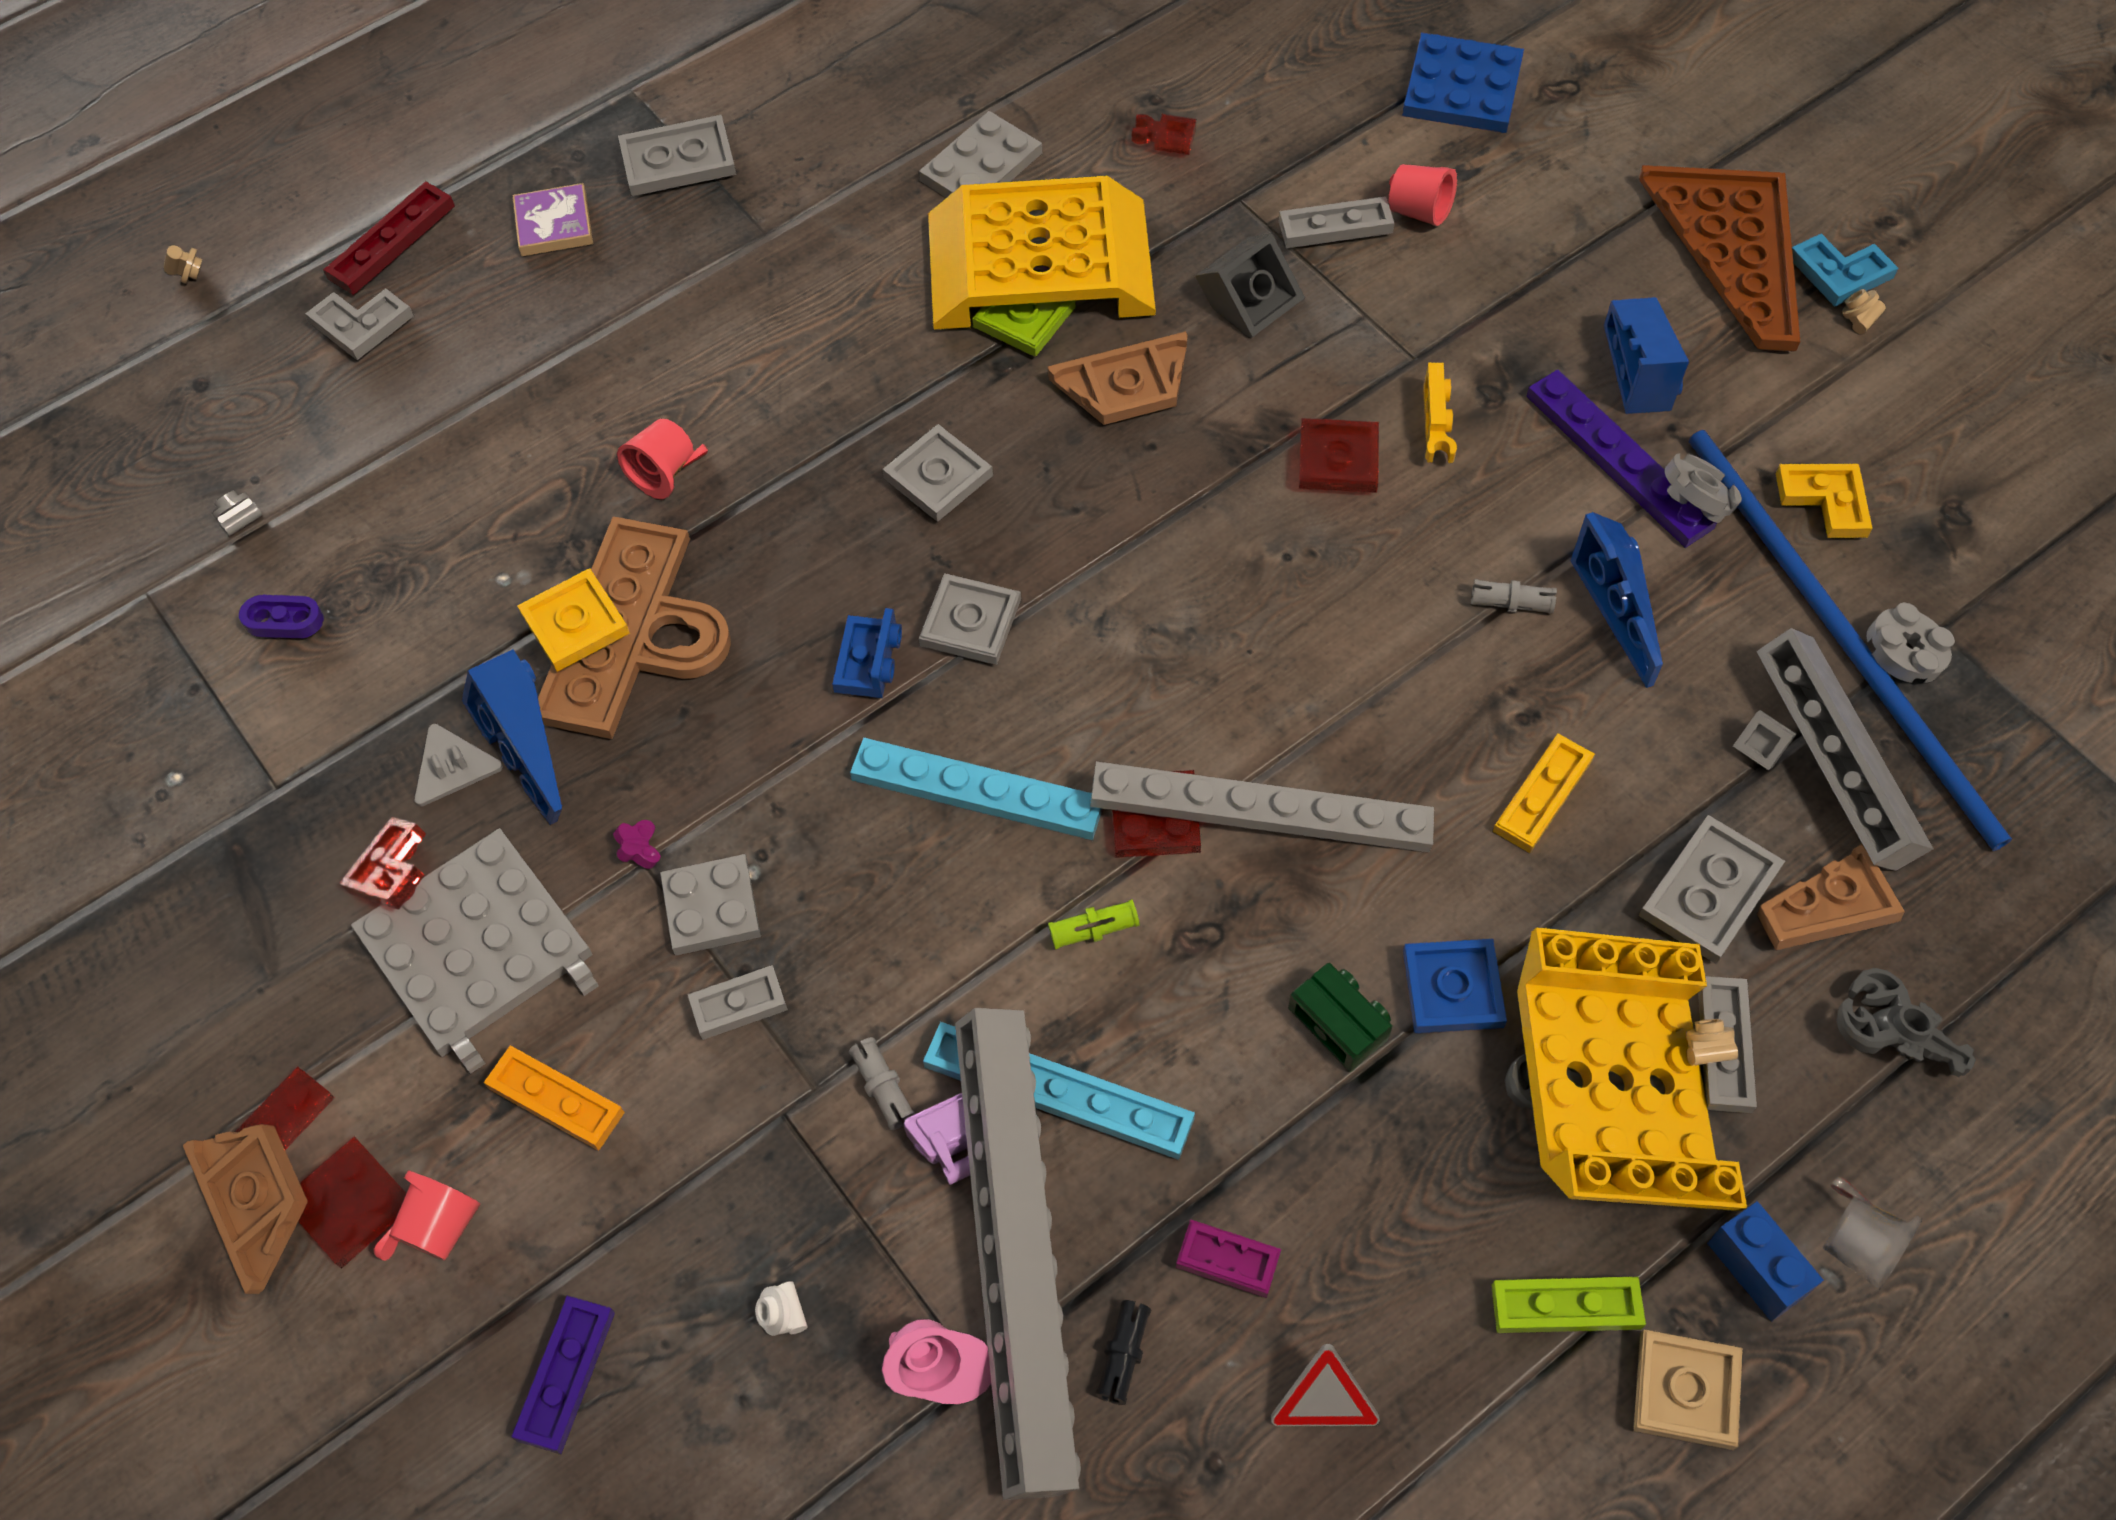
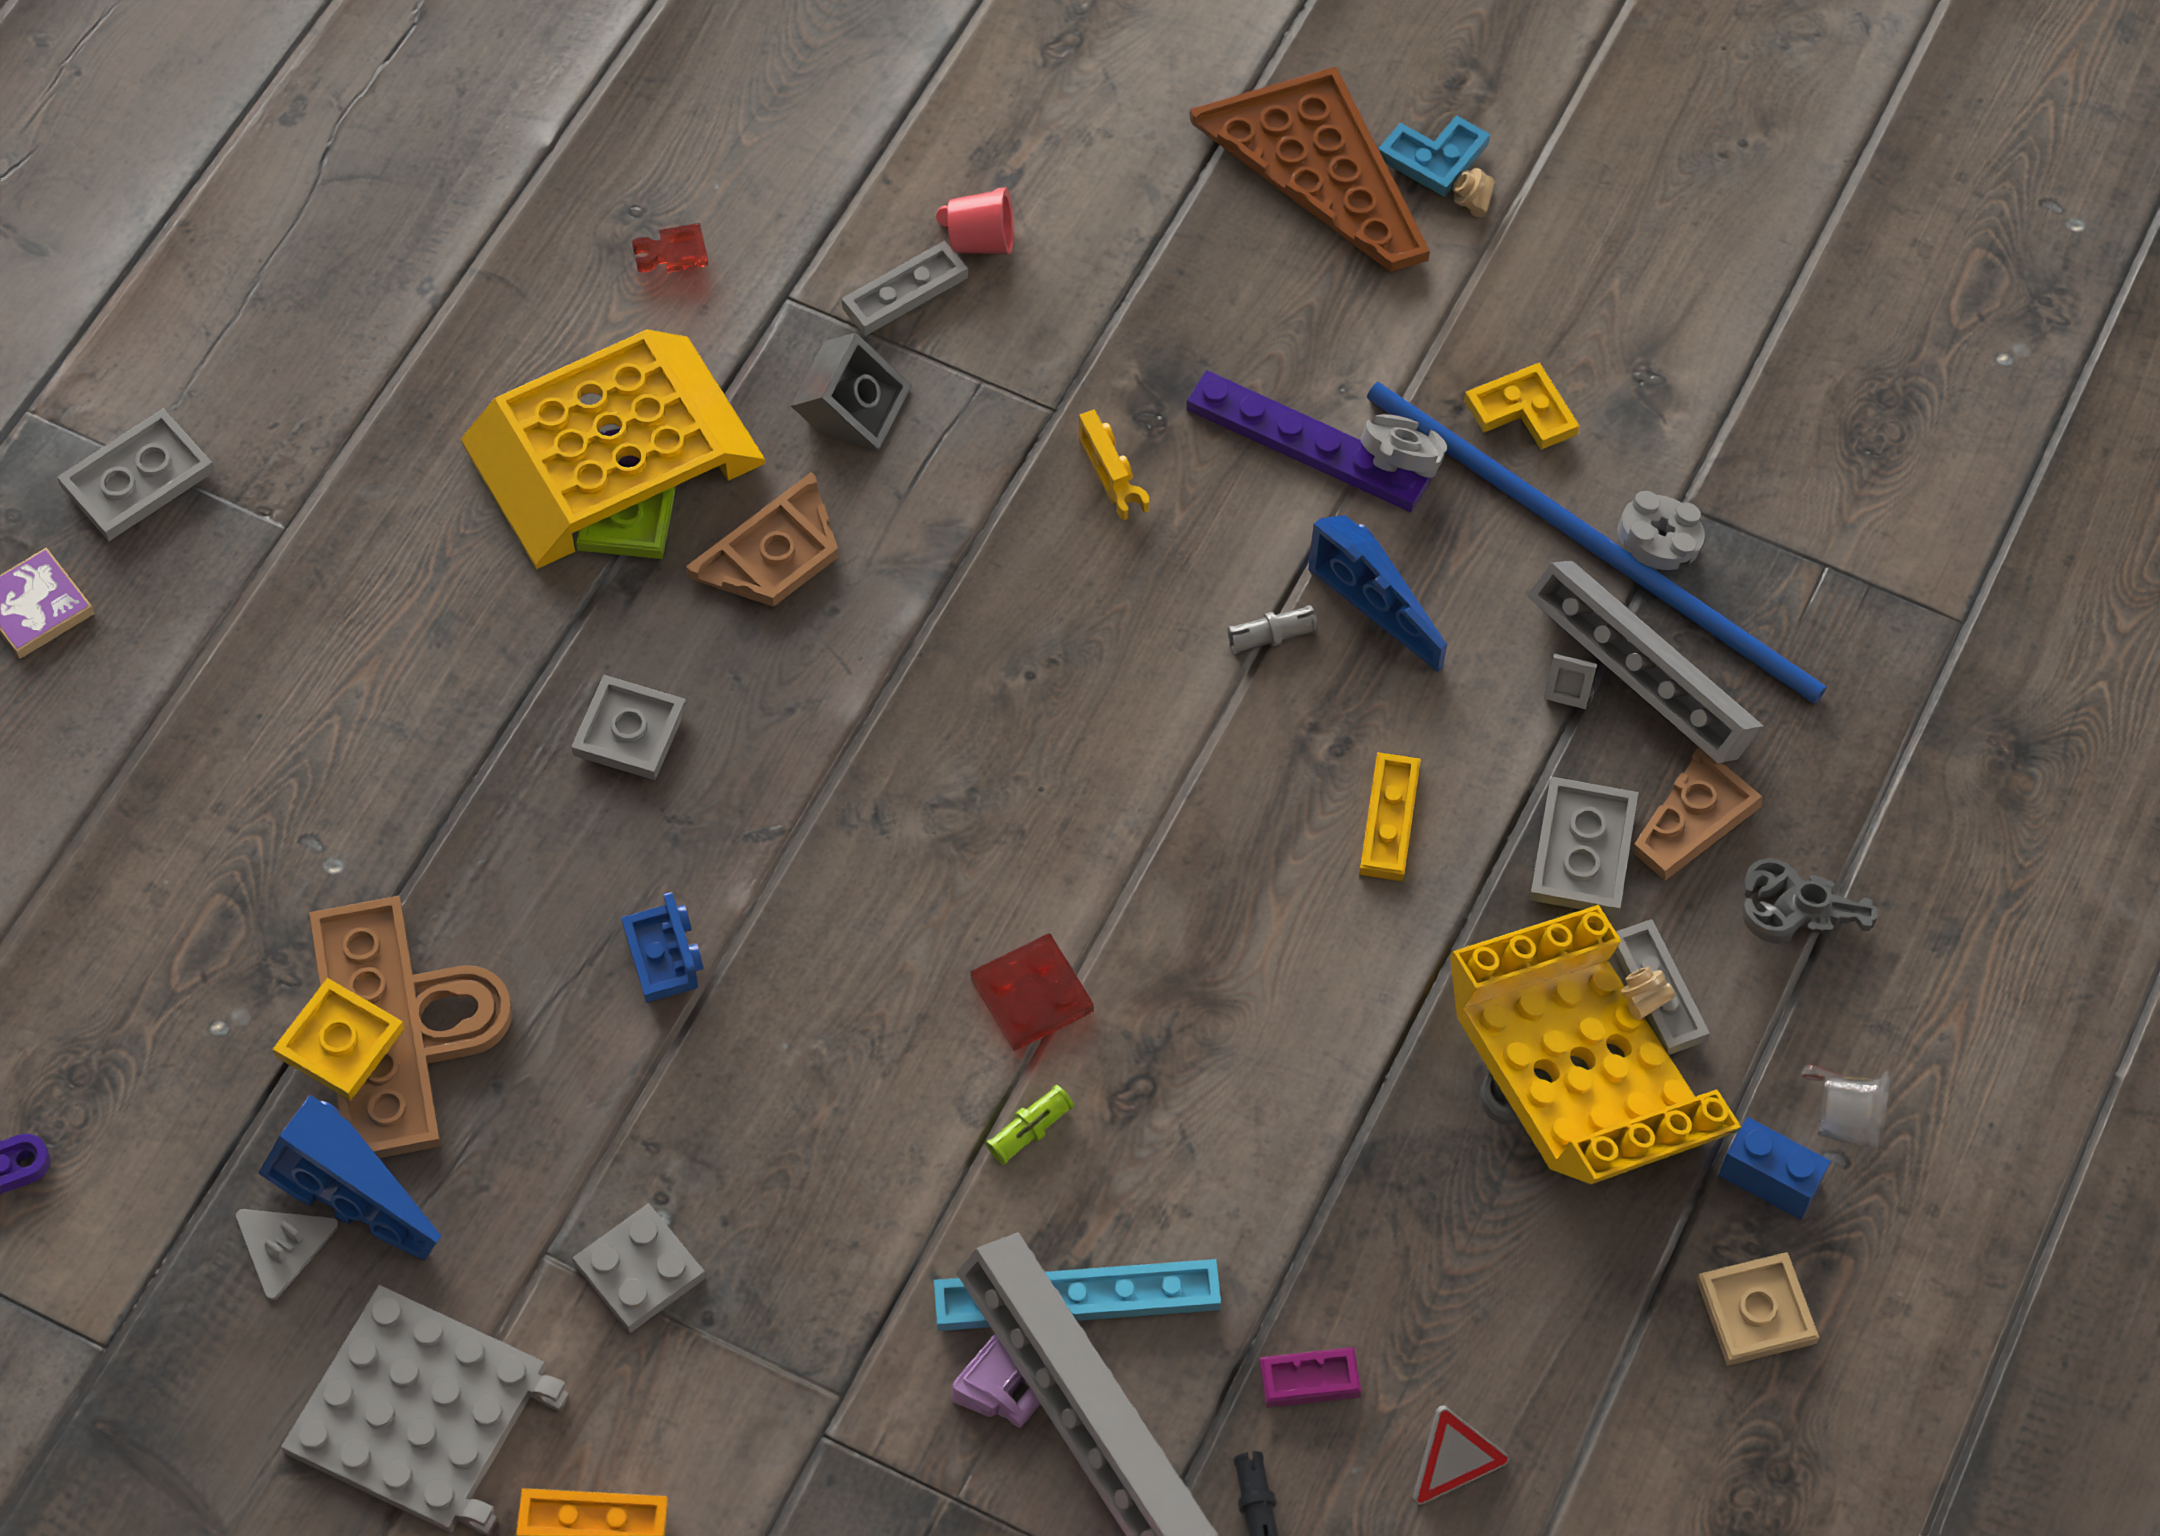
camera: 30 degrees left, 0 degrees up
(382, 870) = (279, 1376): clear red plate -> none
(635, 843) = (530, 1241): magenta piece -> none
(657, 456) = (322, 829): coral hat -> none
(737, 1002) = (723, 1349): light grey plate -> none
(881, 1083) = (906, 1363): light grey pin -> none
(970, 619) = (746, 869): light grey plate -> none
(976, 788) = (843, 1039): medium azure plate -> none
(981, 155) = (482, 353): light grey plate -> none
(1262, 807) = (1133, 942): light grey plate -> none
(1339, 455) = (1032, 547): clear red plate -> none
(1341, 1015) = (1305, 1111): dark green brick -> none
(1454, 986) = (1394, 1038): blue plate -> none
(1463, 82) = (959, 74): blue plate -> none
(1568, 1305) = (1624, 1282): lime plate -> none
(1645, 355) = (1286, 322): blue wedge -> none

